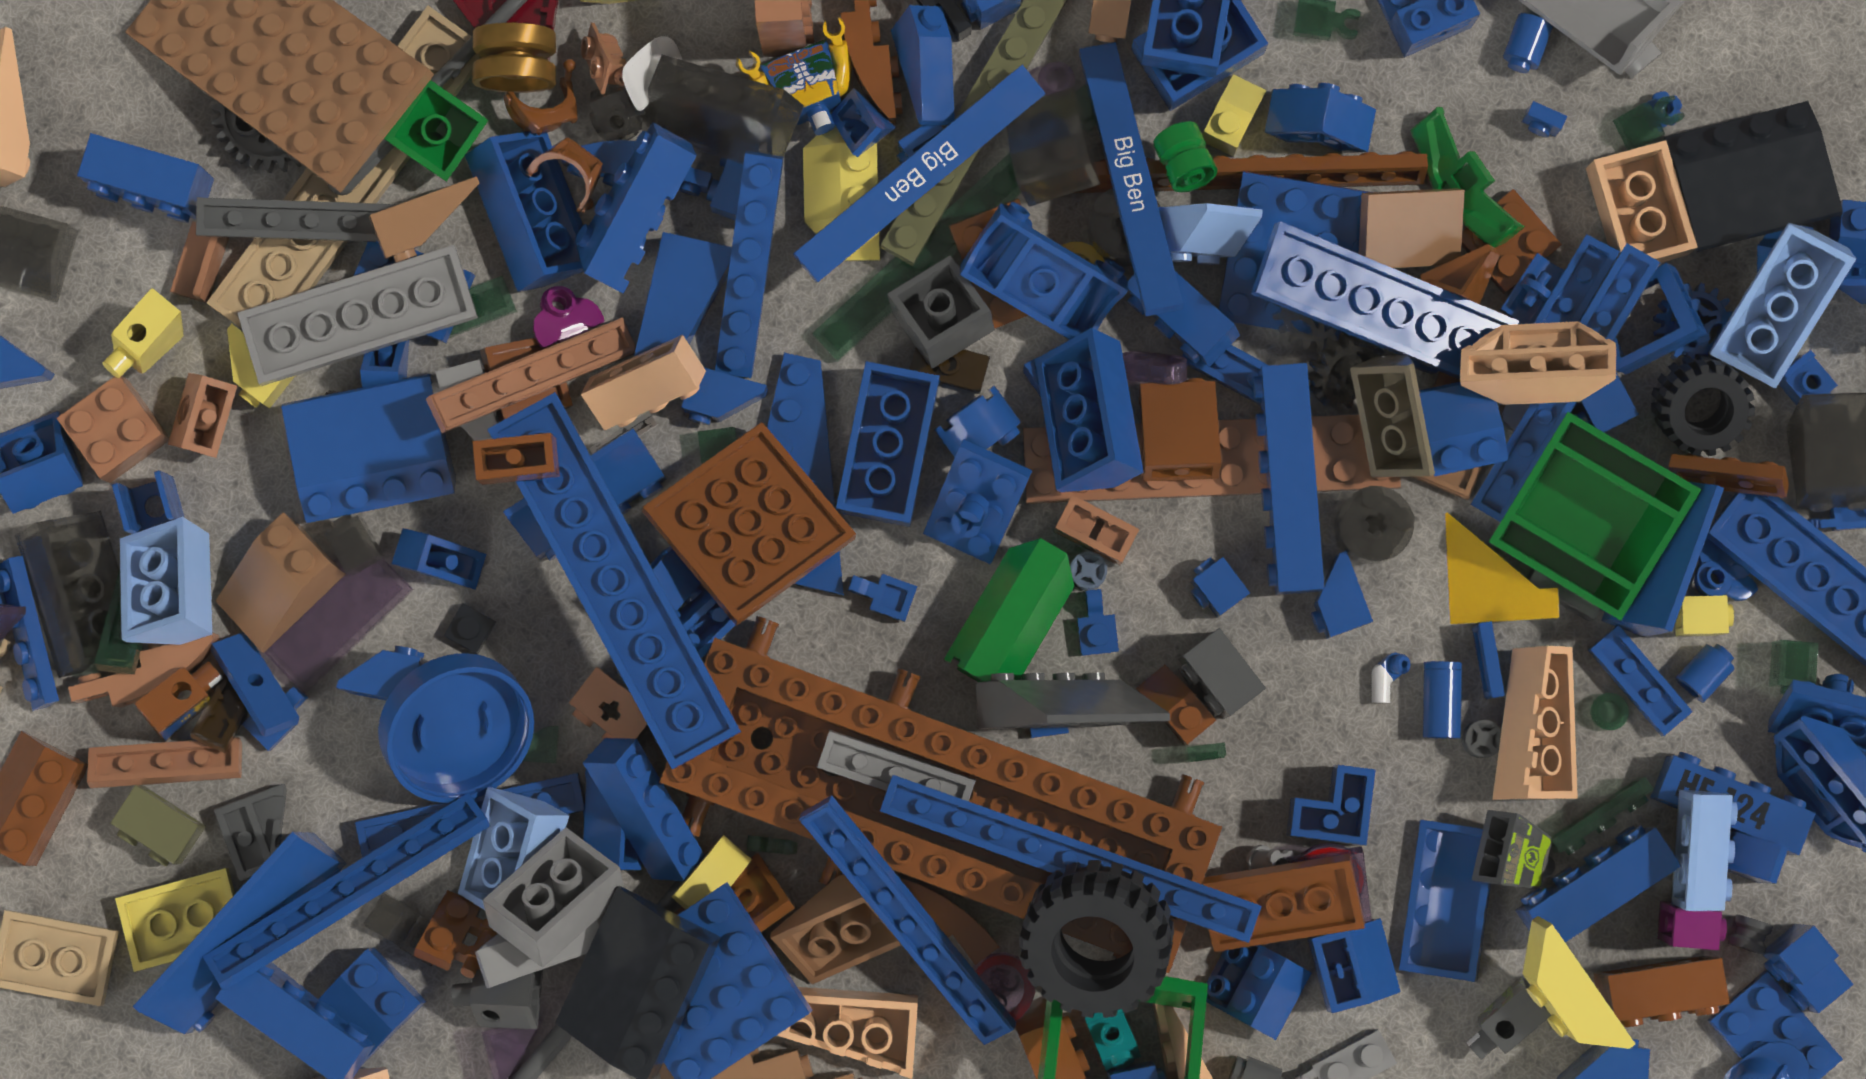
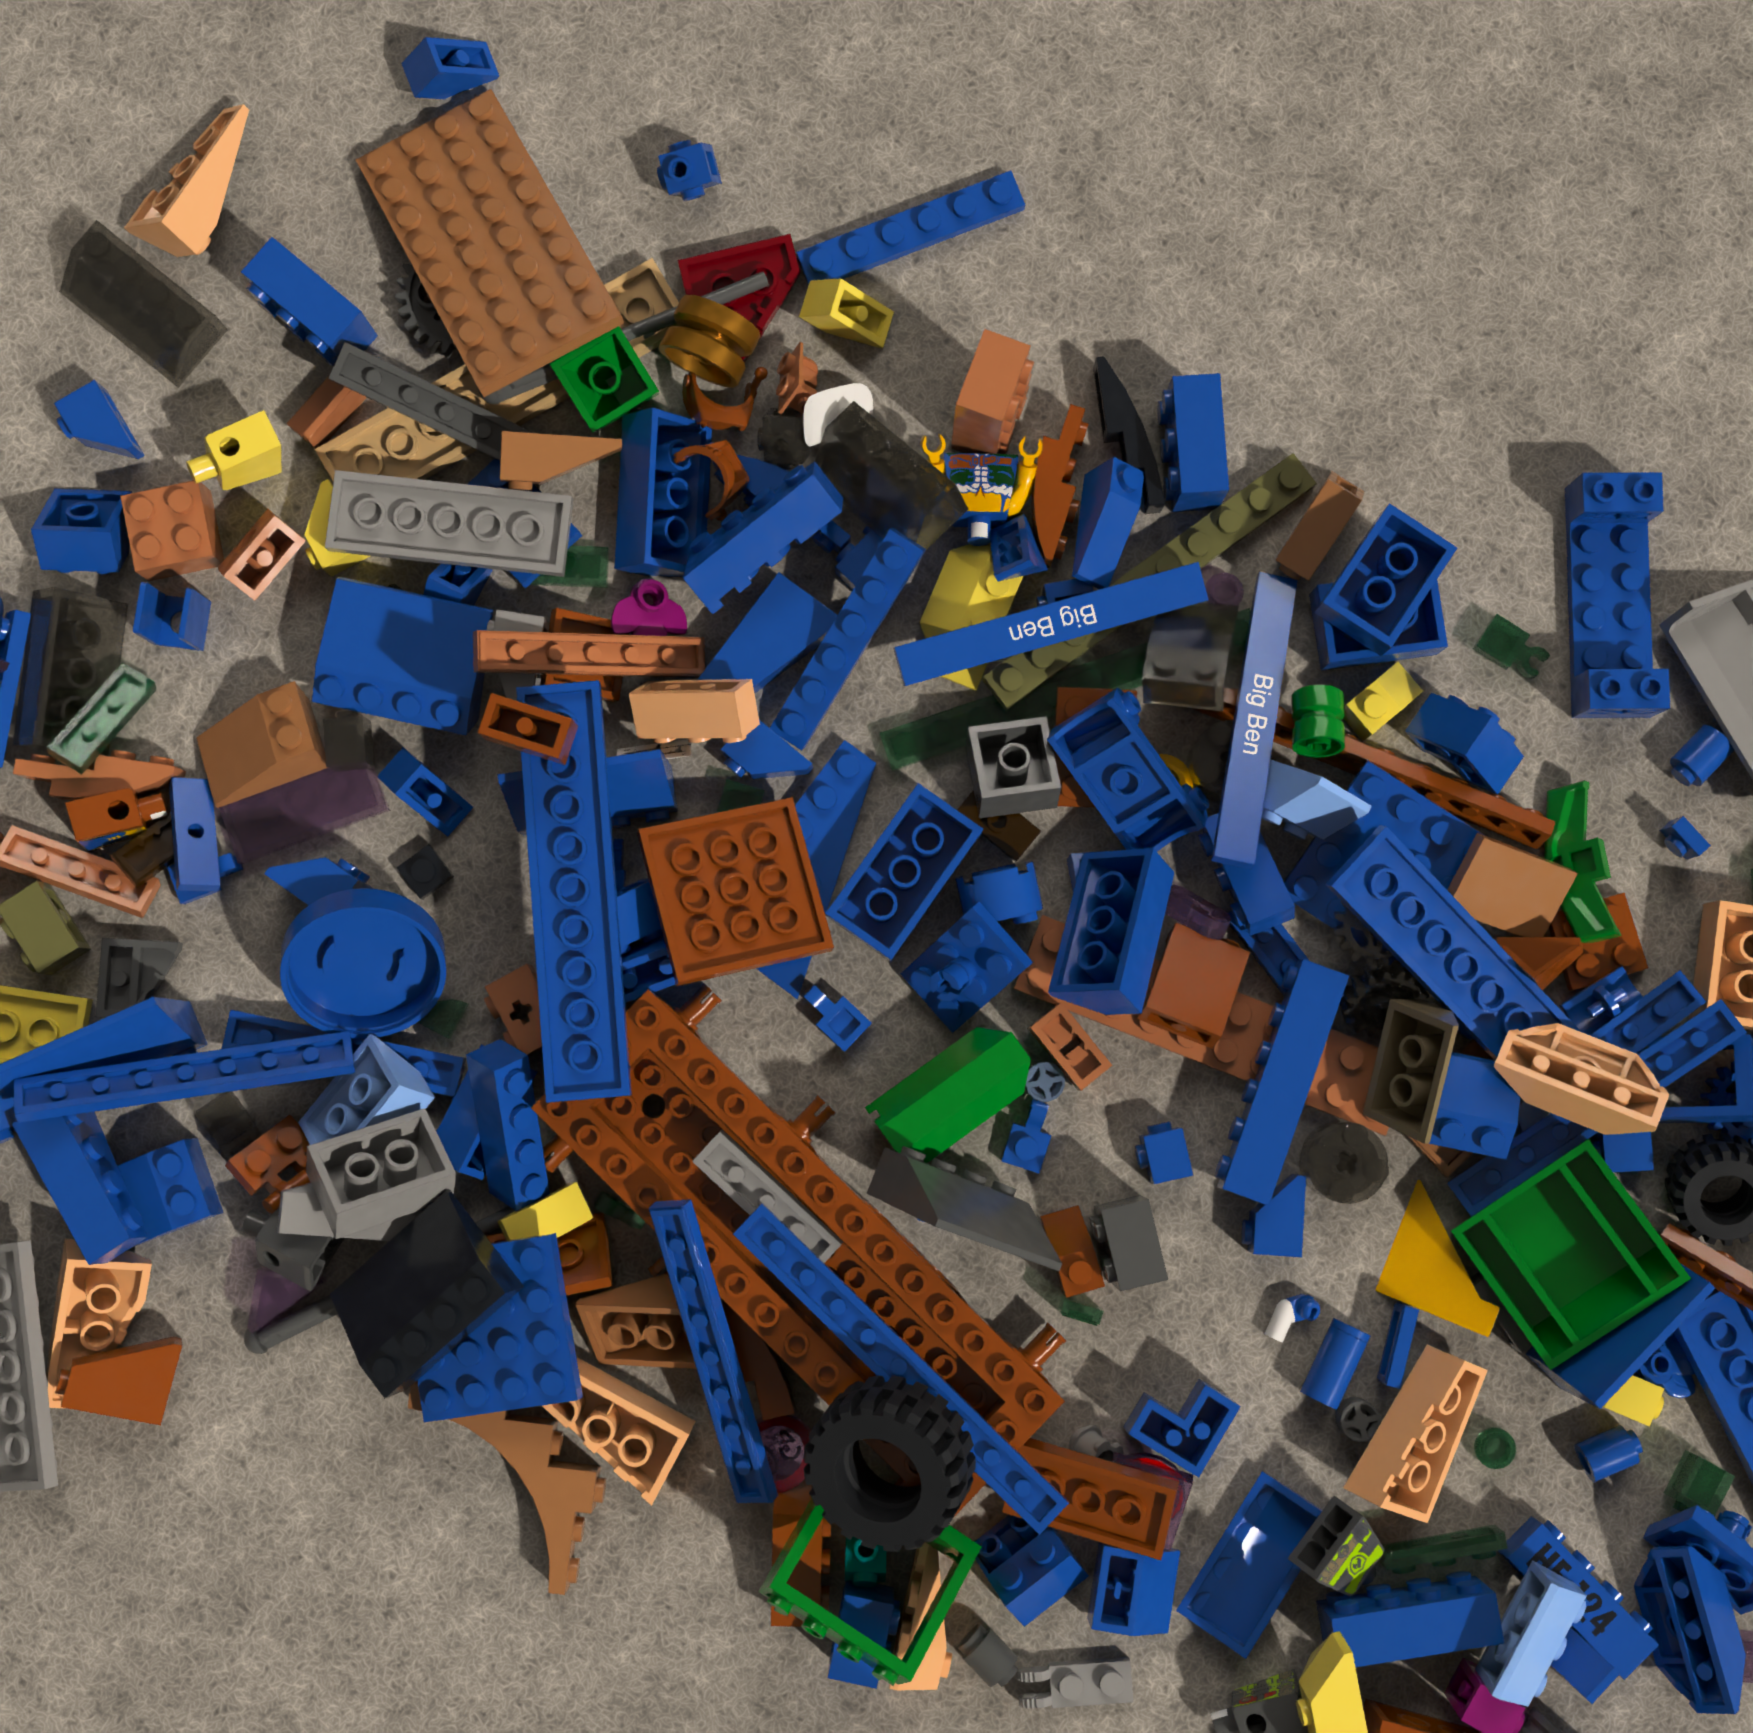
camera: 25 degrees right, 0 degrees up
(166, 584) = (152, 701): light blue slope -> none
(1640, 680) = (1539, 1431): blue plate -> none

